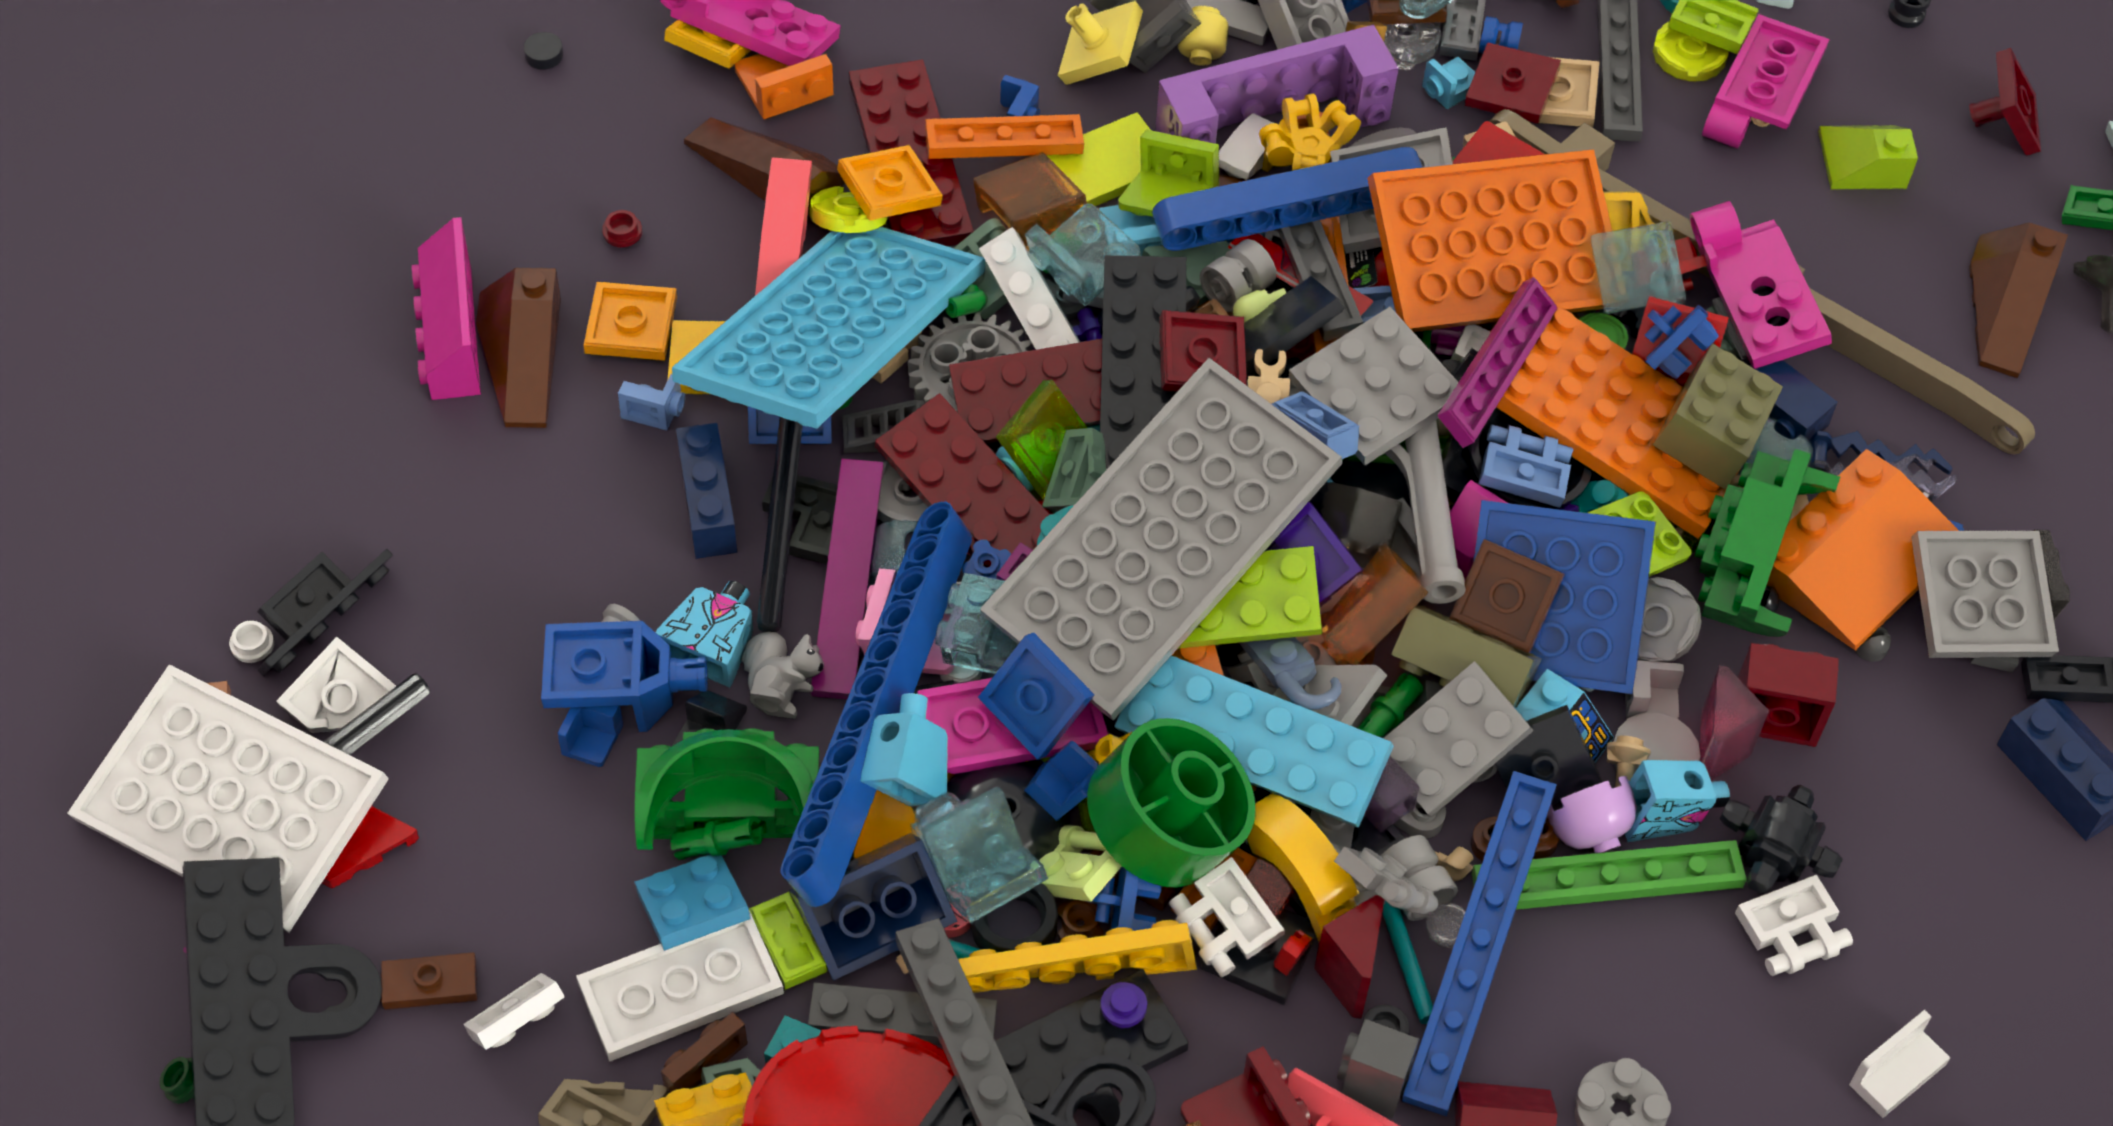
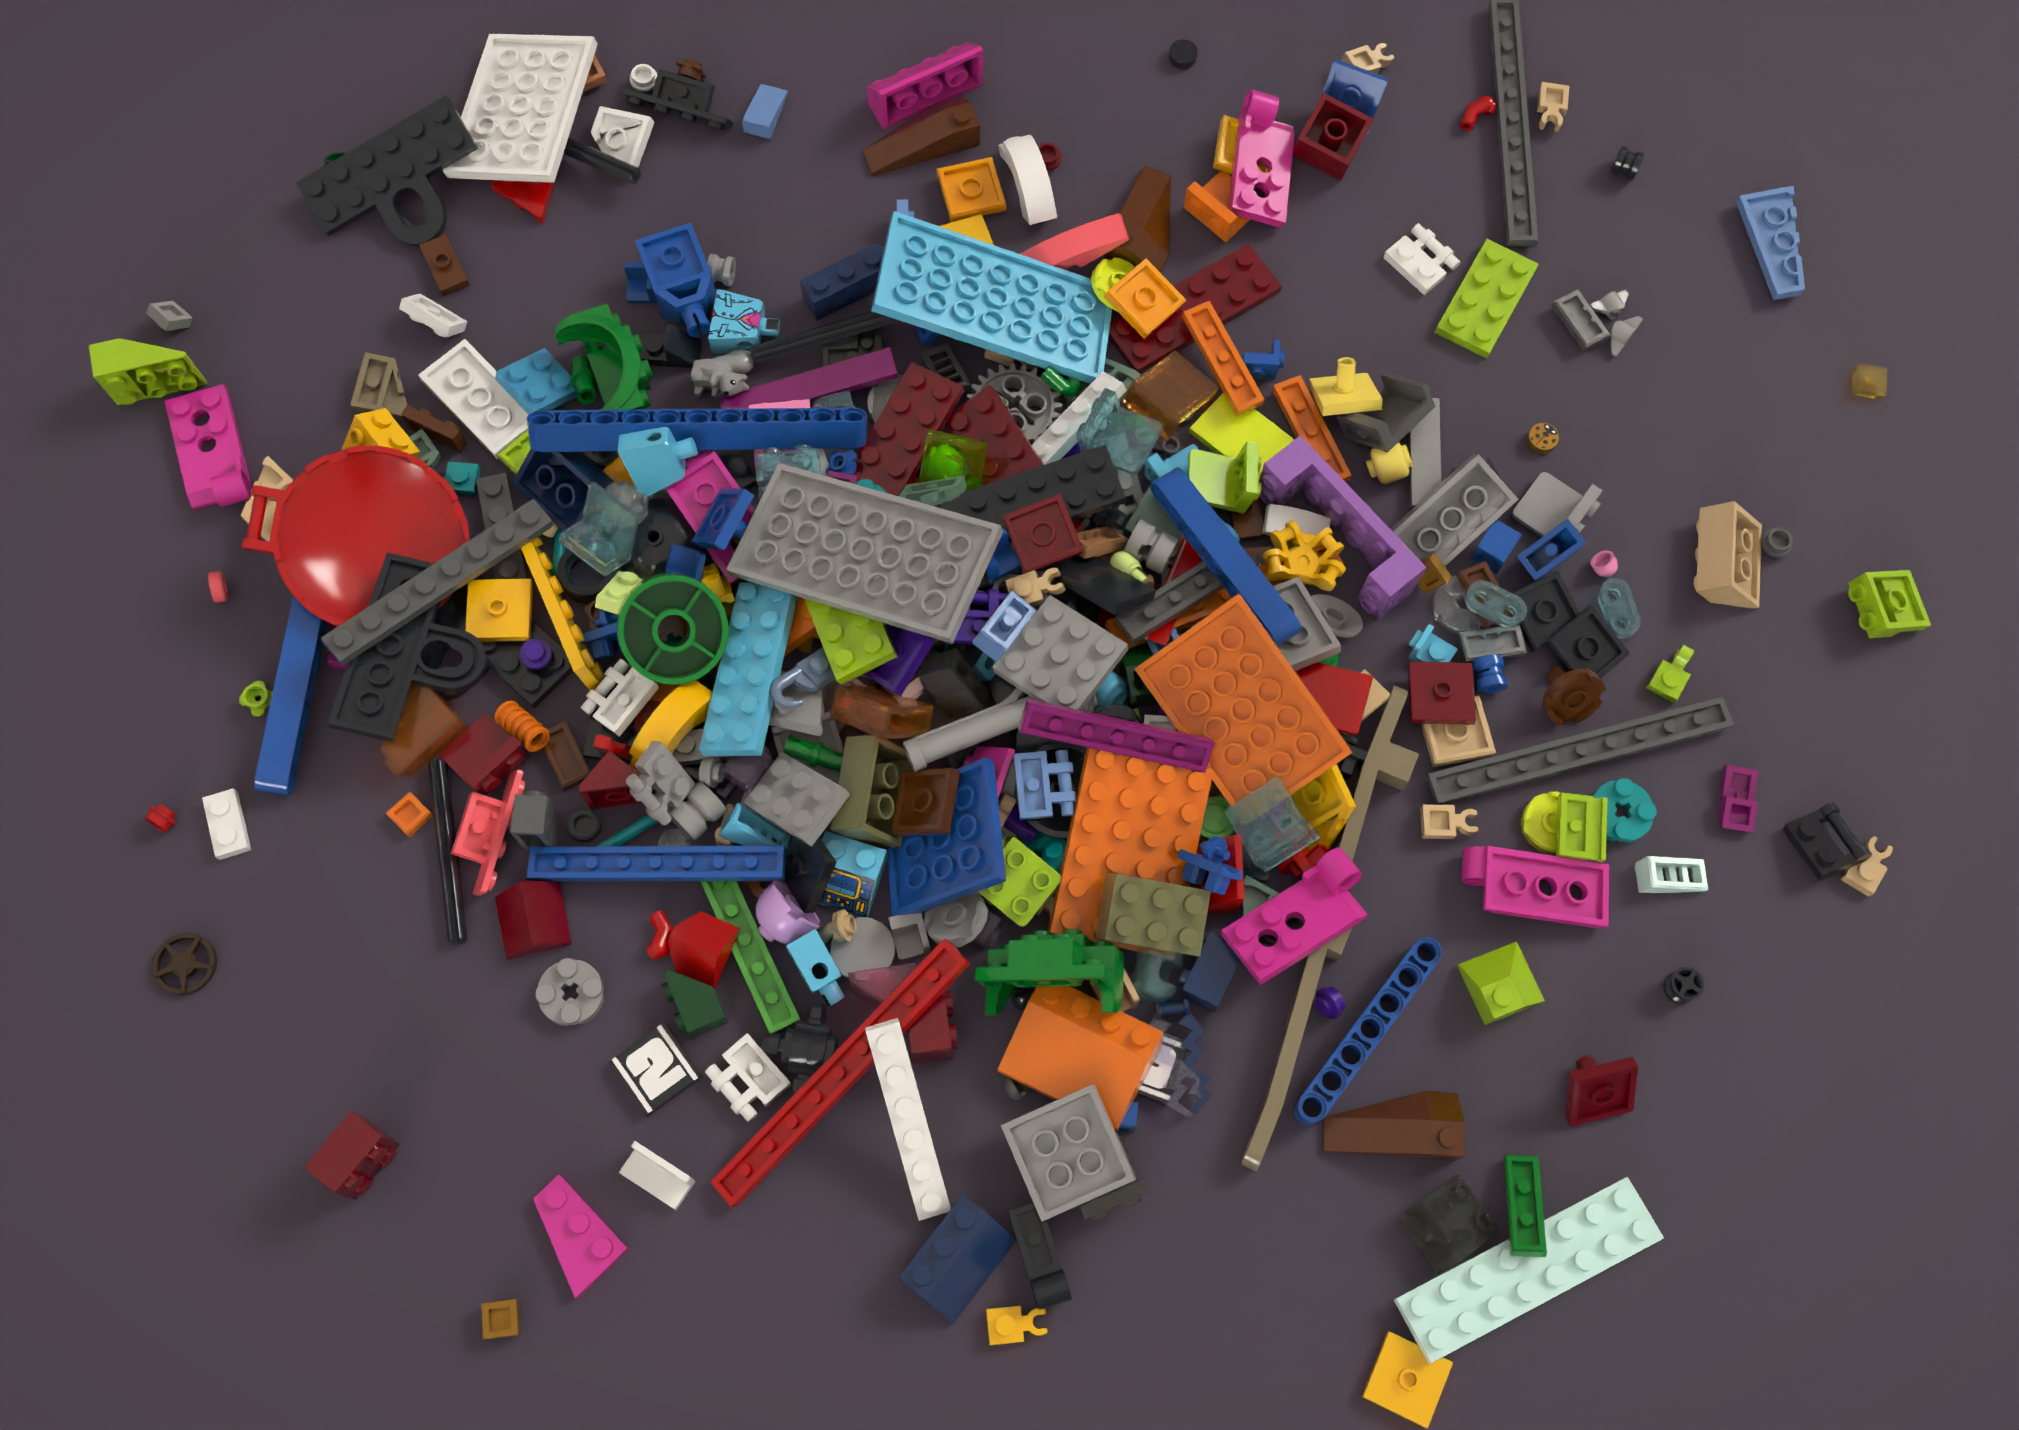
camera: 70 degrees right, 15 degrees up
(273, 577) = (691, 69): none -> reddish brown plate
(384, 514) = (764, 111): none -> medium blue slope
(651, 239) = (1030, 178): none -> white arch
(1040, 1033) = (499, 609): none -> yellow plate
(1107, 95) = (1307, 421): none -> orange plate
(1220, 1056) = (522, 726): none -> orange piece
(1274, 1025) = (565, 756): none -> reddish brown tile
(1374, 834) = (711, 771): none -> light grey plate
(1463, 822) = (751, 829): none -> medium azure slope
(1572, 970) = (658, 946): none -> red arm
(1609, 923) = (702, 947): none -> red slope
(1663, 136) = (1442, 822): none -> tan plate
(1682, 955) = (697, 1004): none -> dark green slope
(1754, 1033) = (655, 1069): none -> tile
(1838, 796) = (836, 1076): none -> red plate
(1854, 301) = (1329, 1002): none -> dark purple plate
(1893, 281) = (1379, 1020): none -> blue beam
(1909, 739) = (908, 1119): none -> white plate

